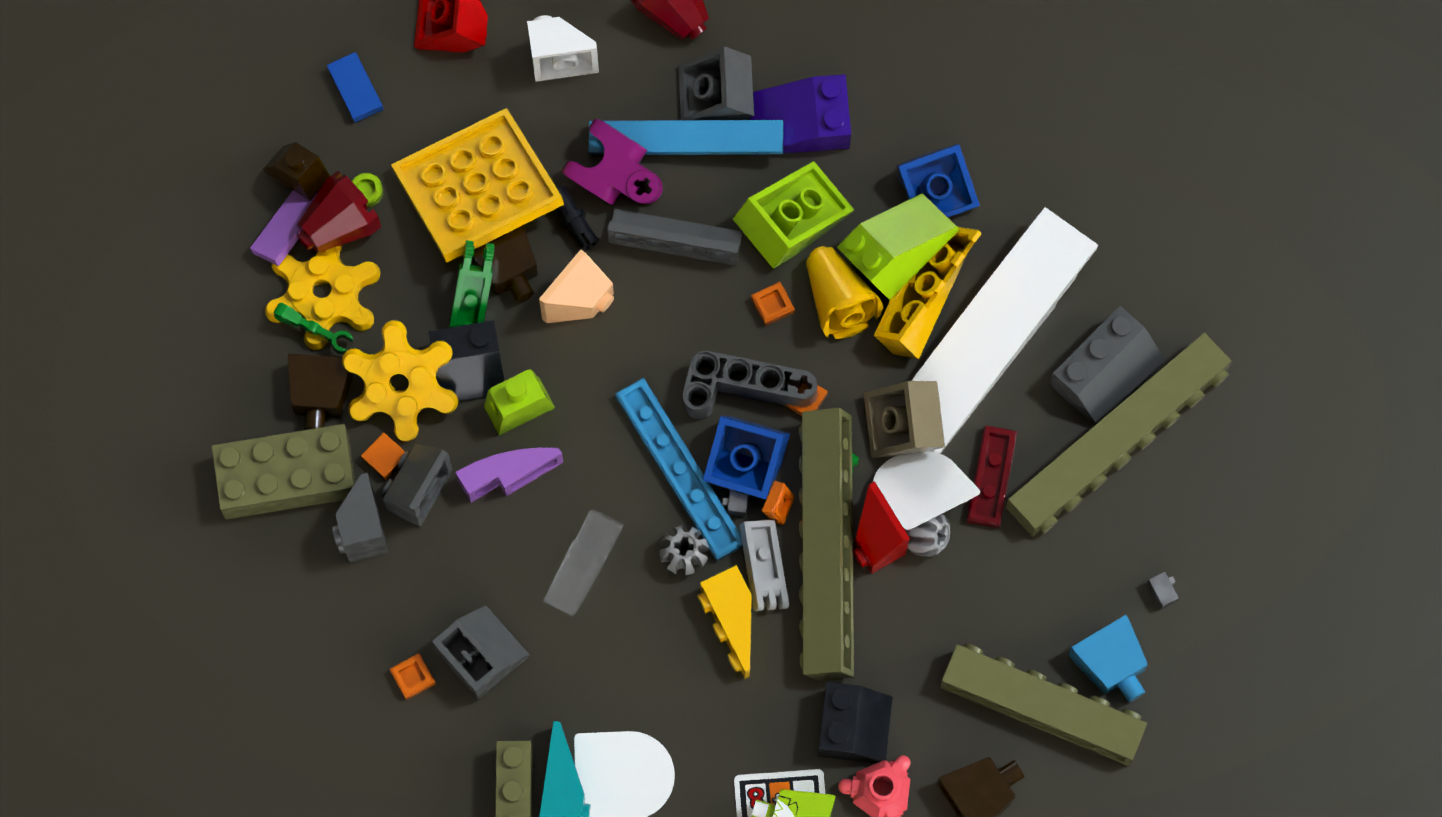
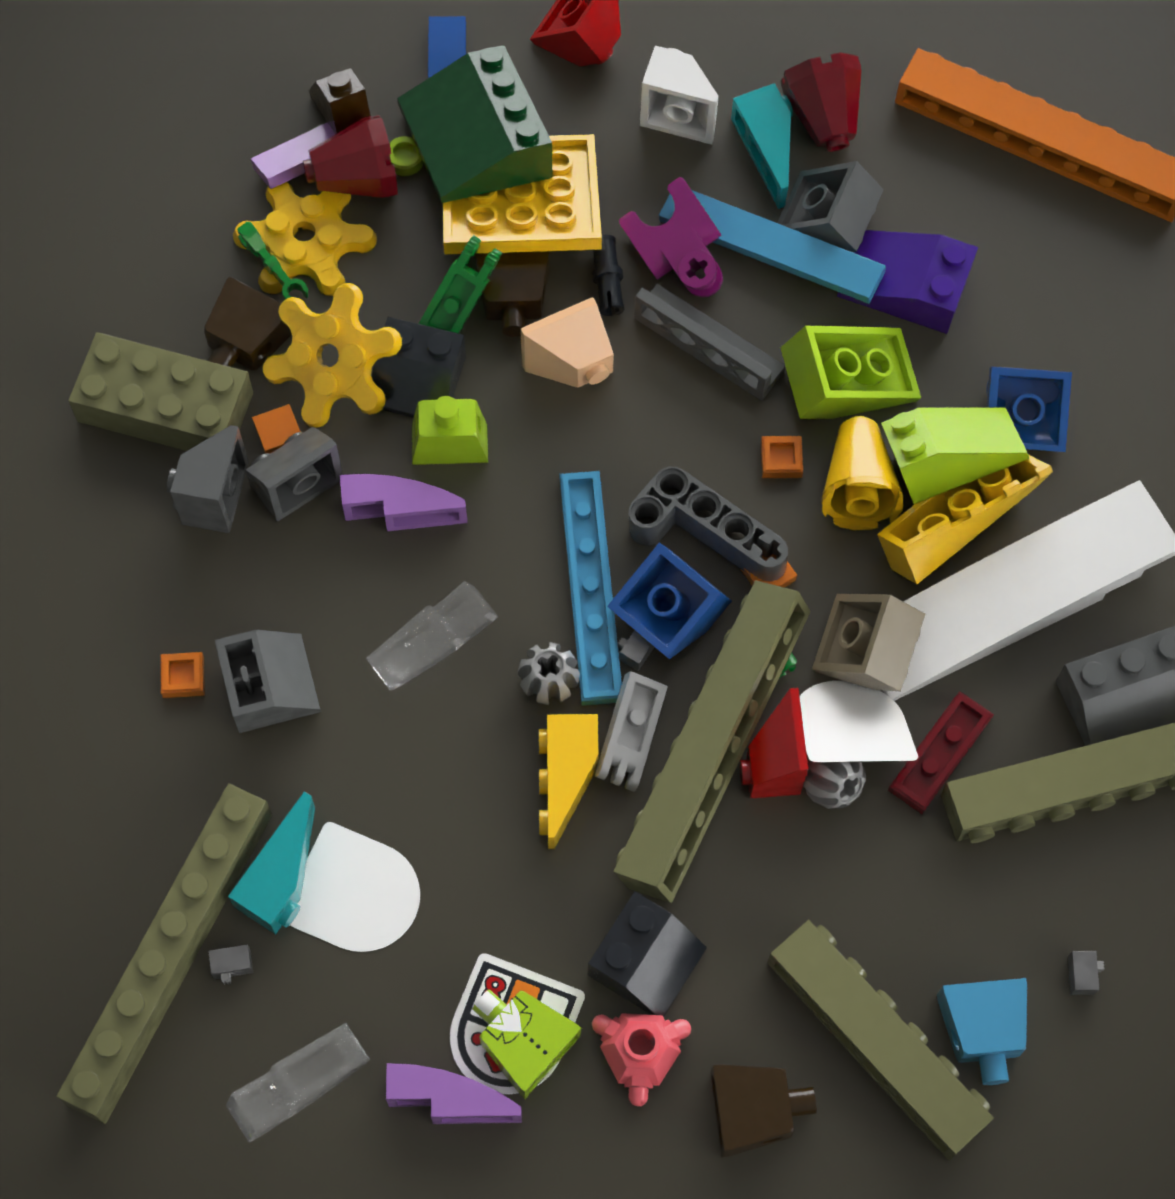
camera: 25 degrees right, 5 degrees down
(416, 145) = (477, 127): none -> dark green slope
(636, 43) = (764, 127): none -> teal slope
(778, 503) = (681, 669): orange tile -> none

